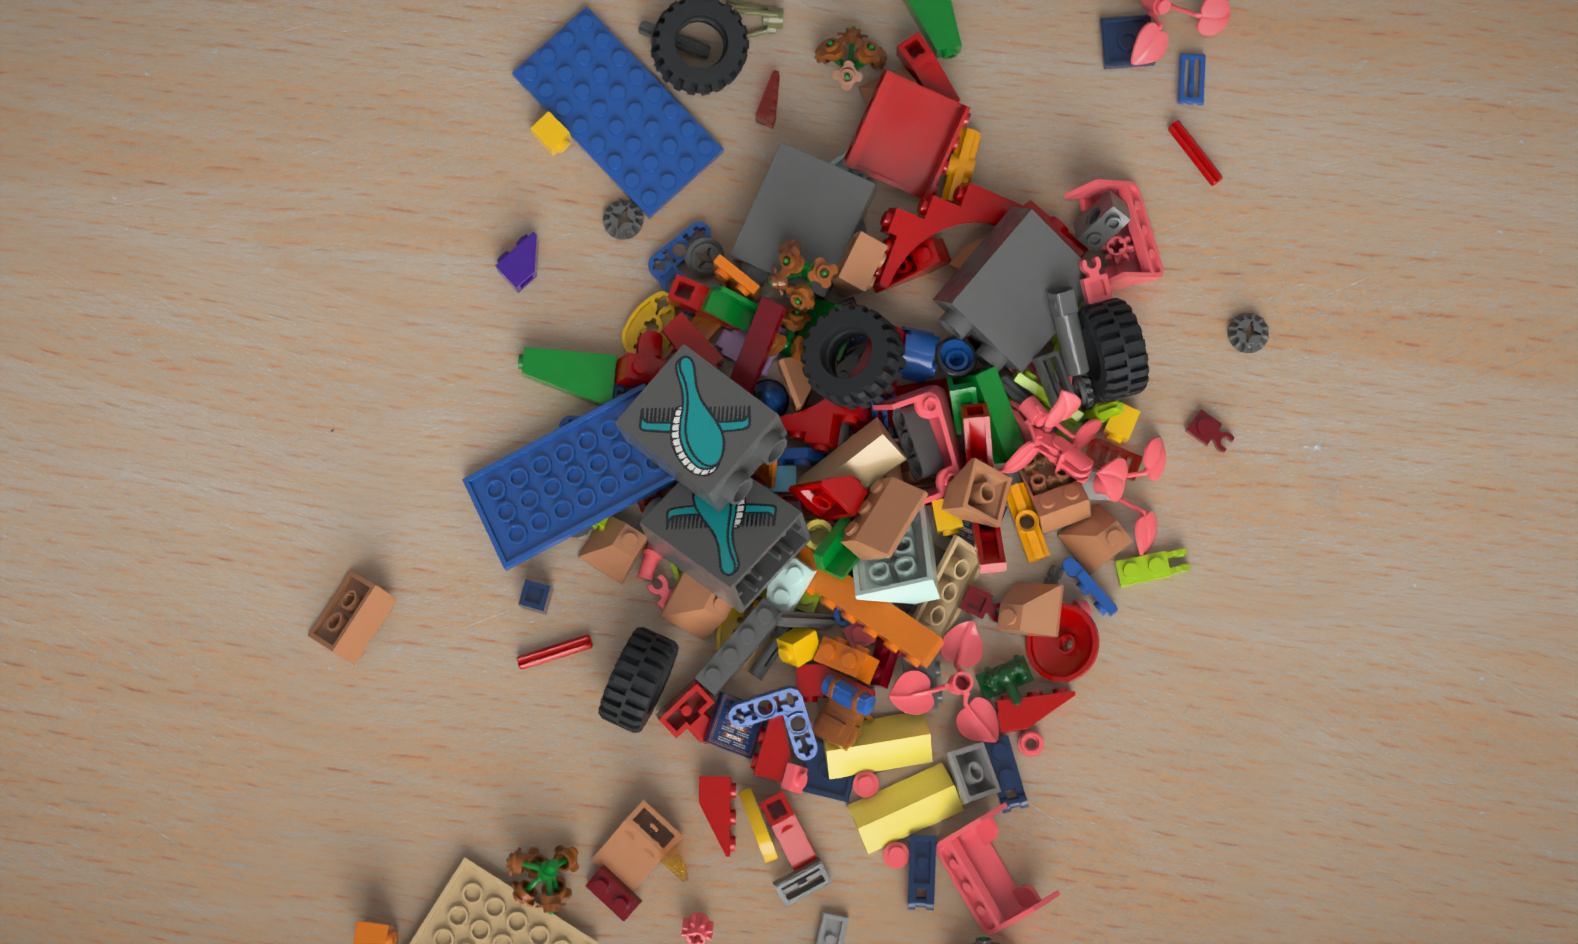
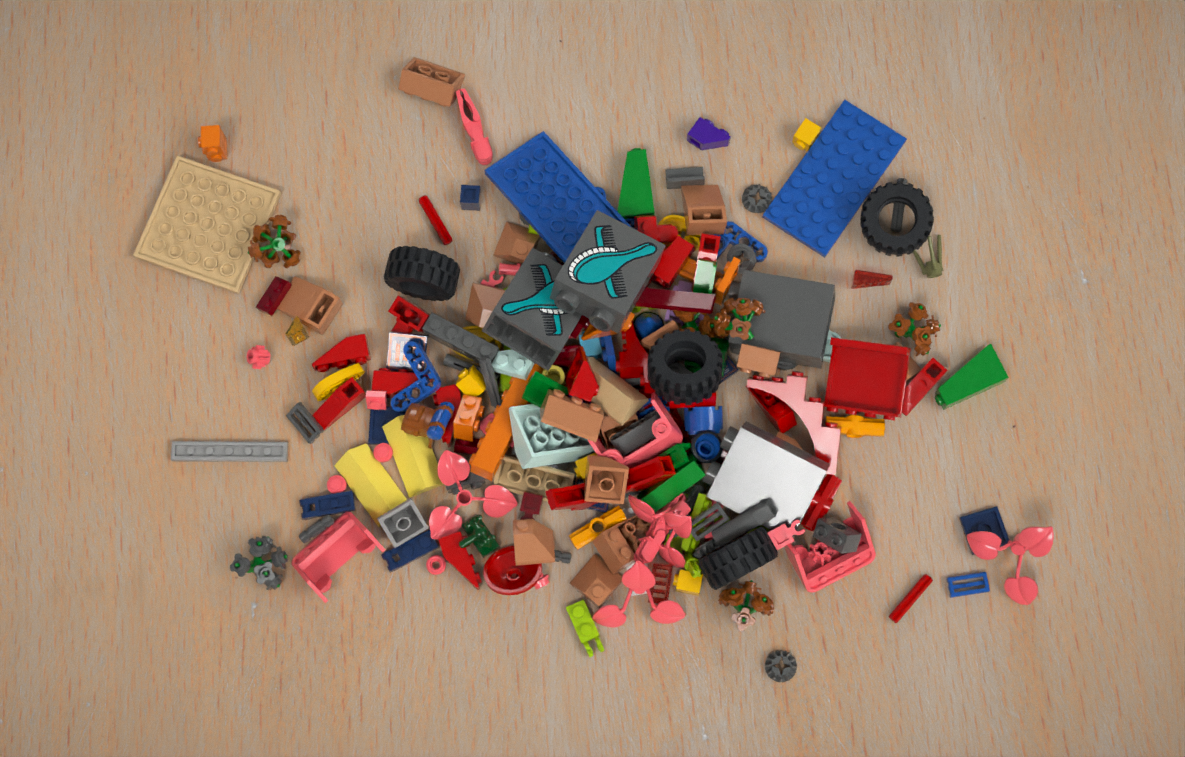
camera: 80 degrees right, 5 degrees down
(437, 572) = (479, 144): none -> coral arm
(572, 306) = (684, 176): none -> dark grey panel
(626, 289) = (703, 209): none -> nougat slope
(951, 892) = (316, 528): none -> dark grey axle
(1088, 585) = (560, 583): blue hinge -> none
(1176, 360) = (759, 603): none -> dark orange plant
(1206, 429) = (698, 648): dark red plate -> none

